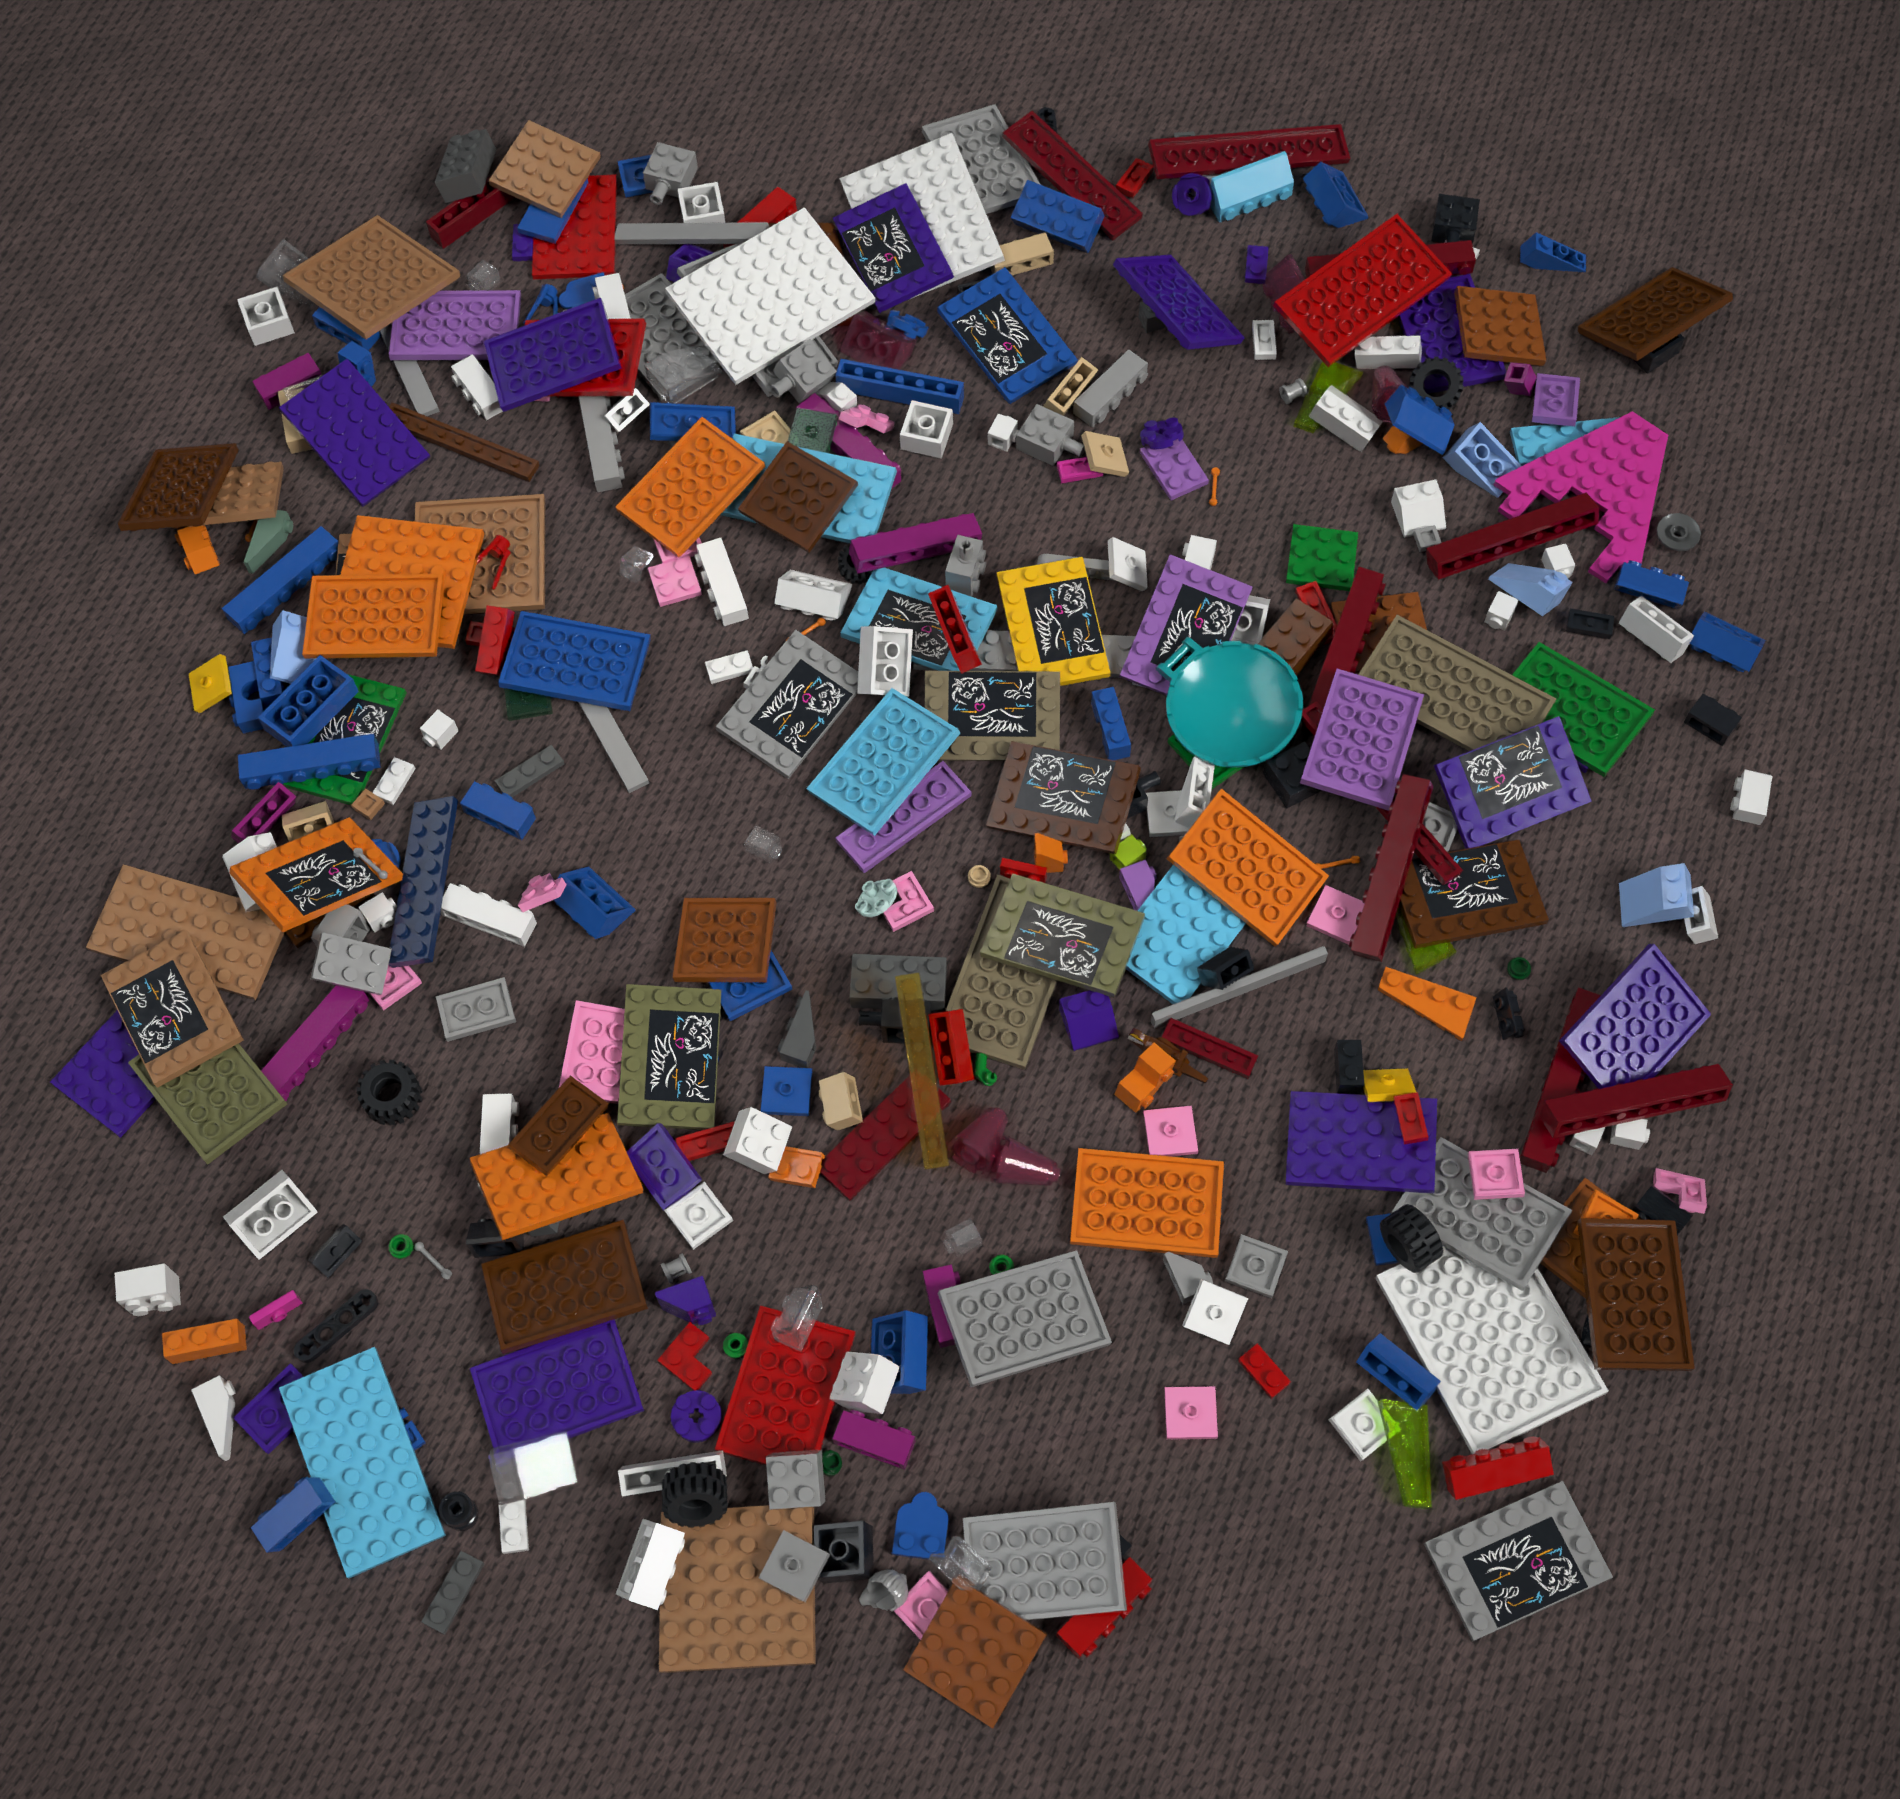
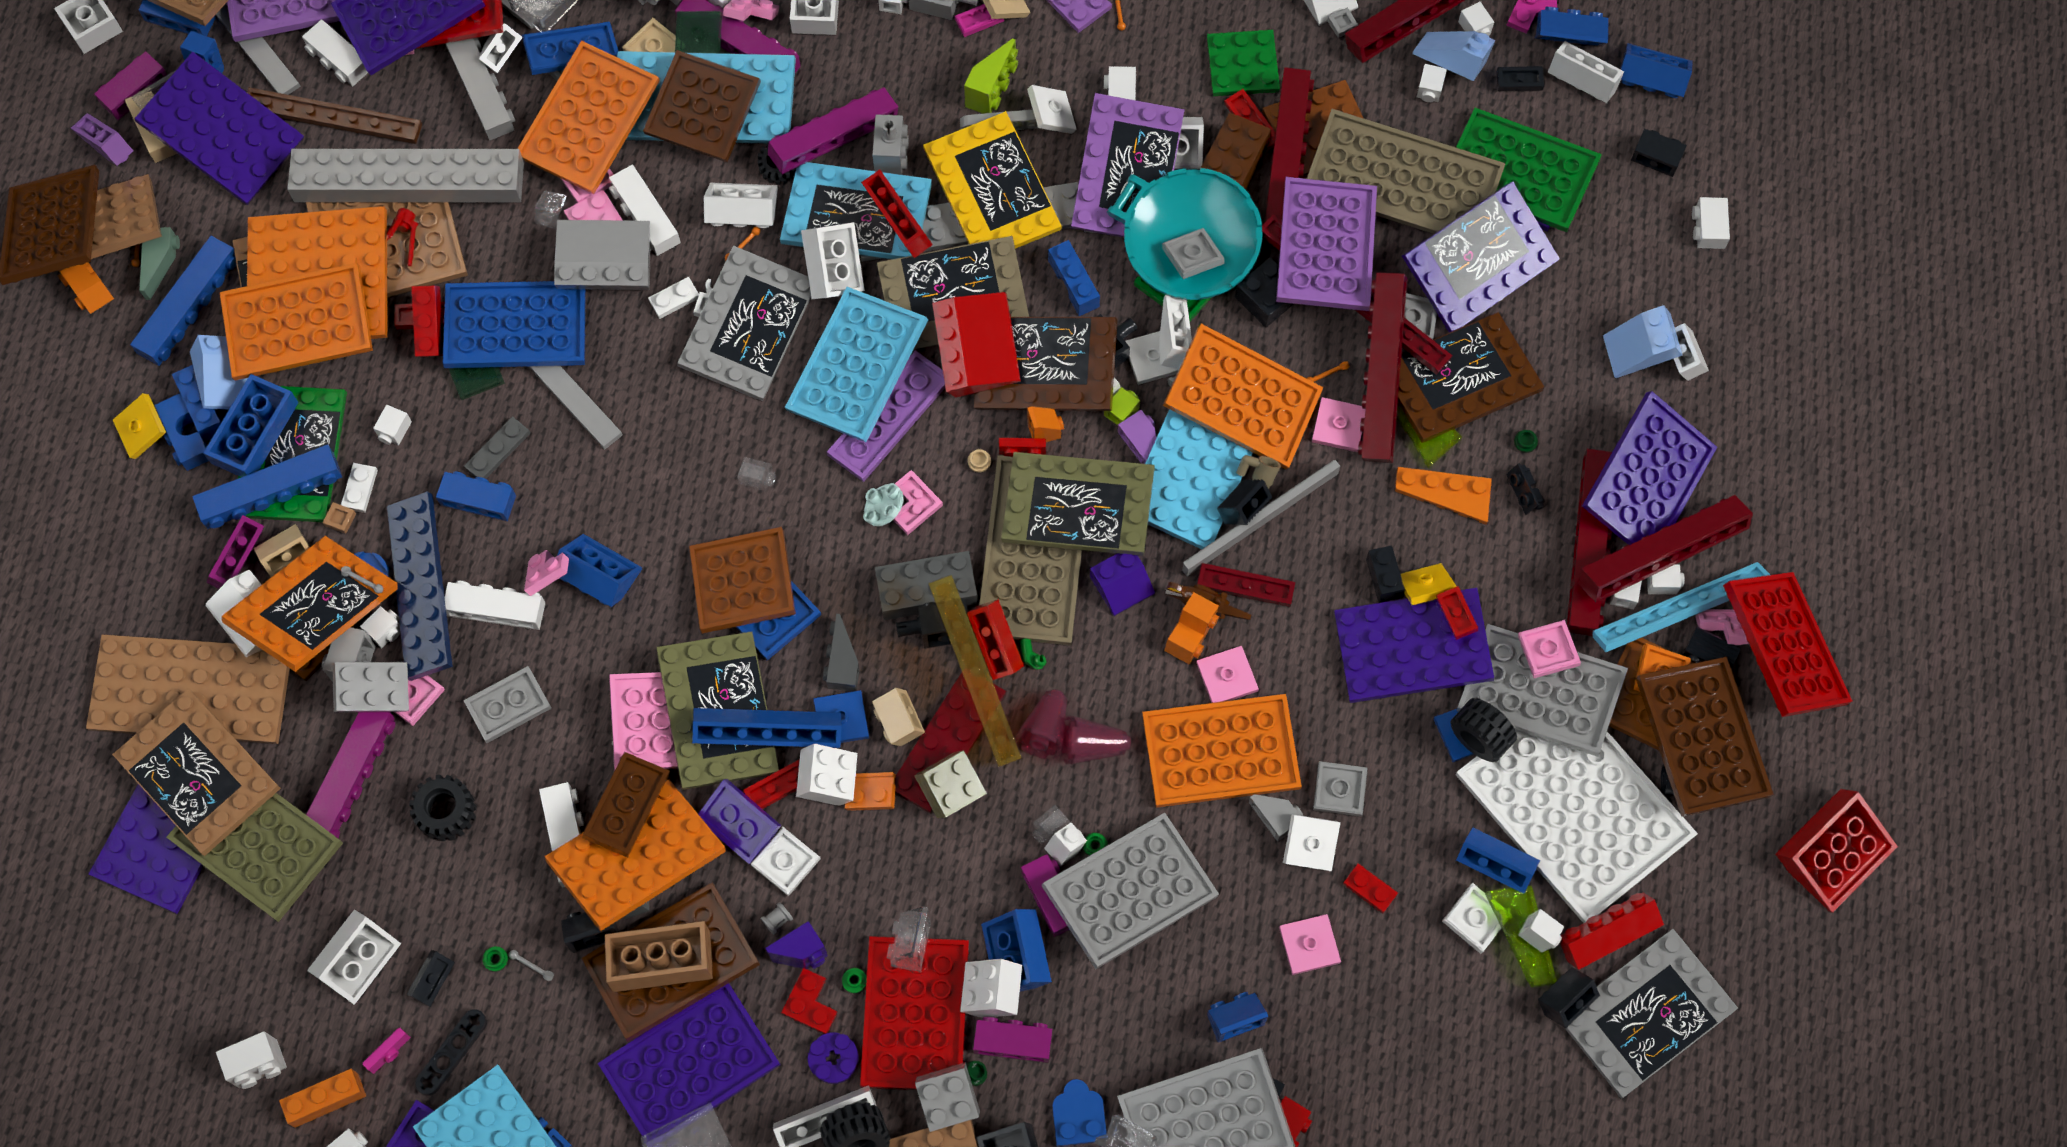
camera: 15 degrees left, 5 degrees up
(250, 423) = (103, 139): none -> medium lavender slope
(511, 506) = (406, 175): none -> light grey brick
(551, 1277) = (658, 956): none -> medium nougat brick
(671, 613) = (602, 255): none -> light grey slope
(710, 1082) = (766, 727): none -> blue brick
(874, 1176) = (950, 784): none -> brick
(972, 1259) = (1065, 844): none -> white brick
(1000, 764) = (976, 343): none -> red slope
(1075, 524) = (990, 79): none -> lime slope
(1100, 1467) = (1236, 1016): none -> blue slope
(1230, 722) = (1193, 253): none -> light grey plate
(1254, 939) = (1265, 468): none -> dark tan piece
(1426, 1452) = (1541, 931): none -> white brick
(1439, 1525) = (1568, 997): none -> black brick
(1641, 1162) = (1671, 610): none -> medium azure plate
(1741, 1221) = (1787, 644): none -> red plate
(1750, 1439) = (1837, 849): none -> red slope

